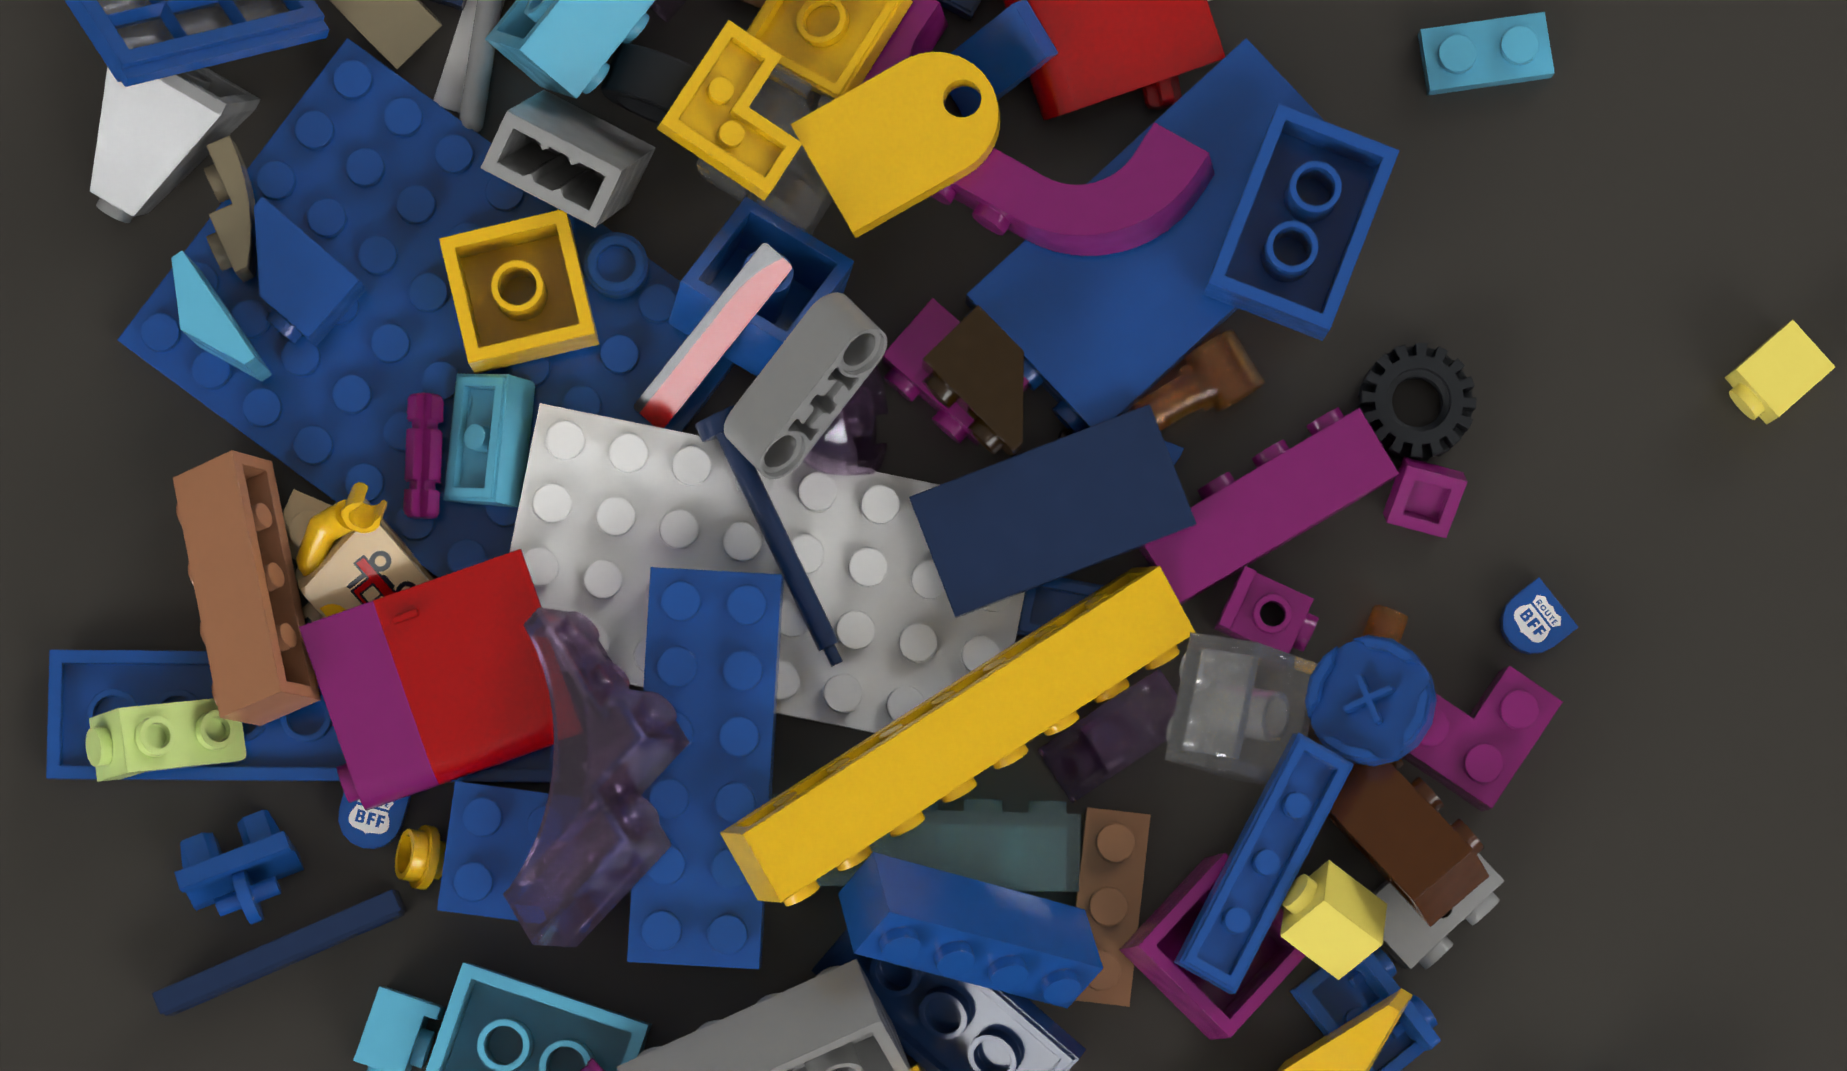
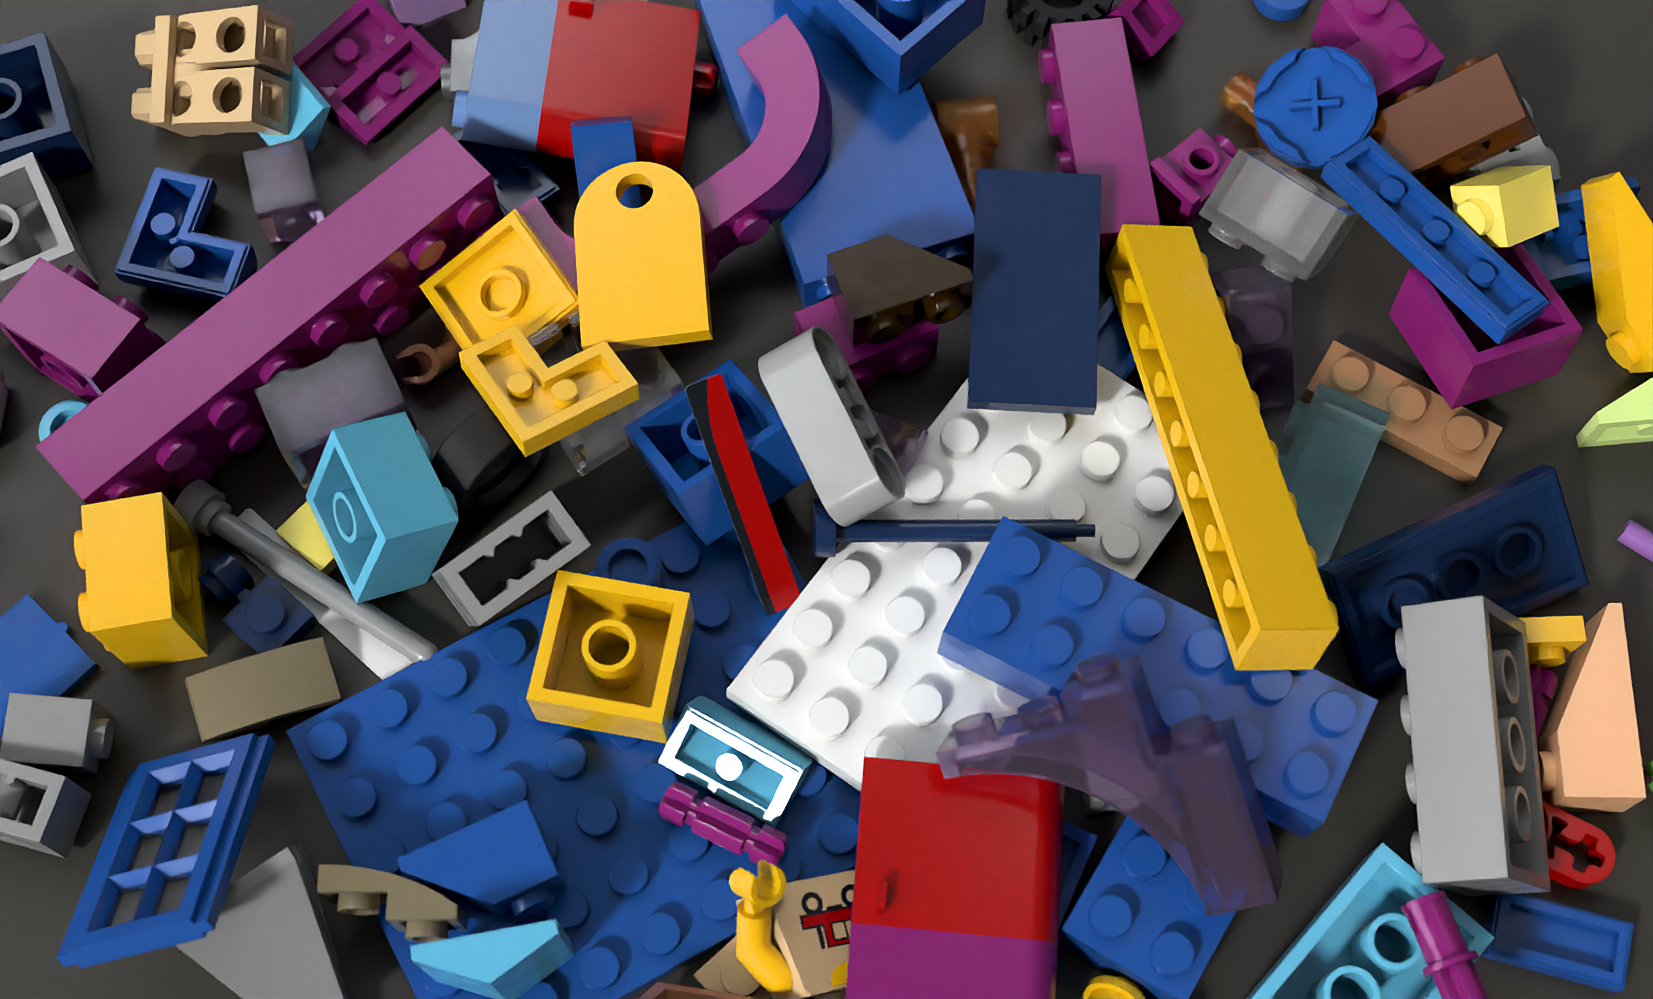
camera: 60 degrees left, 15 degrees down
(969, 930) = (1403, 507): blue brick -> none

